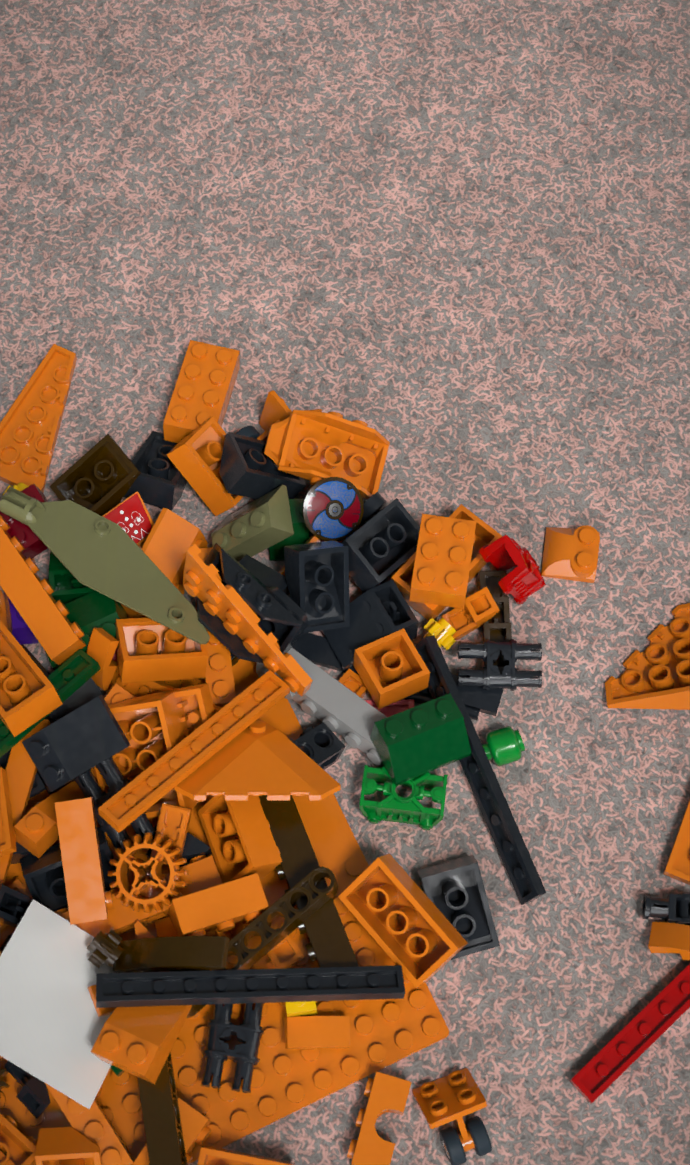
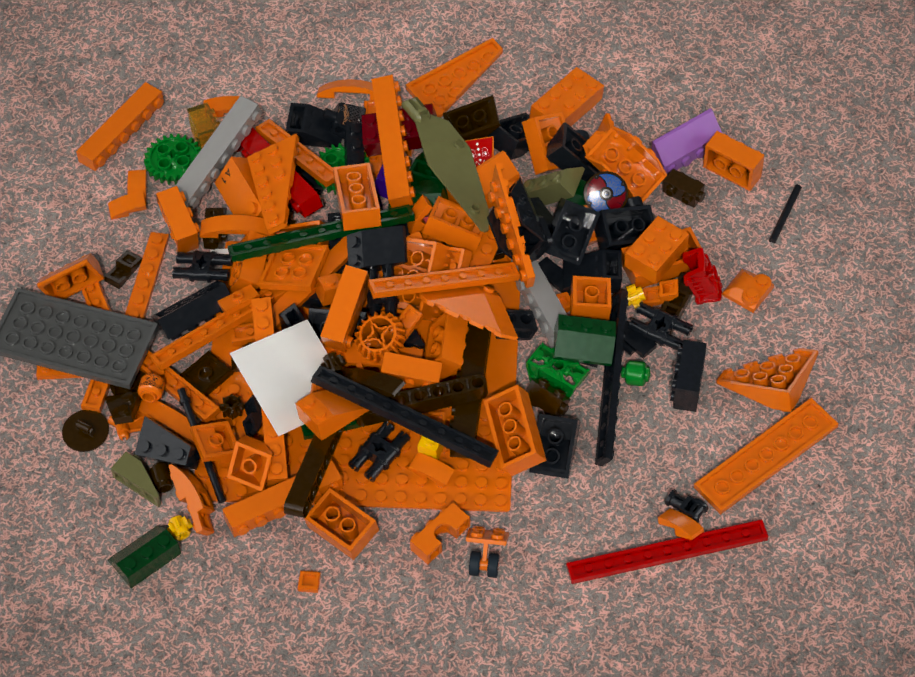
camera: 30 degrees right, 10 degrees down
(389, 383) = (686, 141): none -> medium lavender slope
(412, 841) = (546, 397): none -> dark brown brick
(417, 449) = (684, 188): none -> dark brown brick
(459, 383) = (733, 160): none -> orange brick
(555, 426) = (785, 213): none -> black bar
(575, 718) = (688, 375): none -> black brick

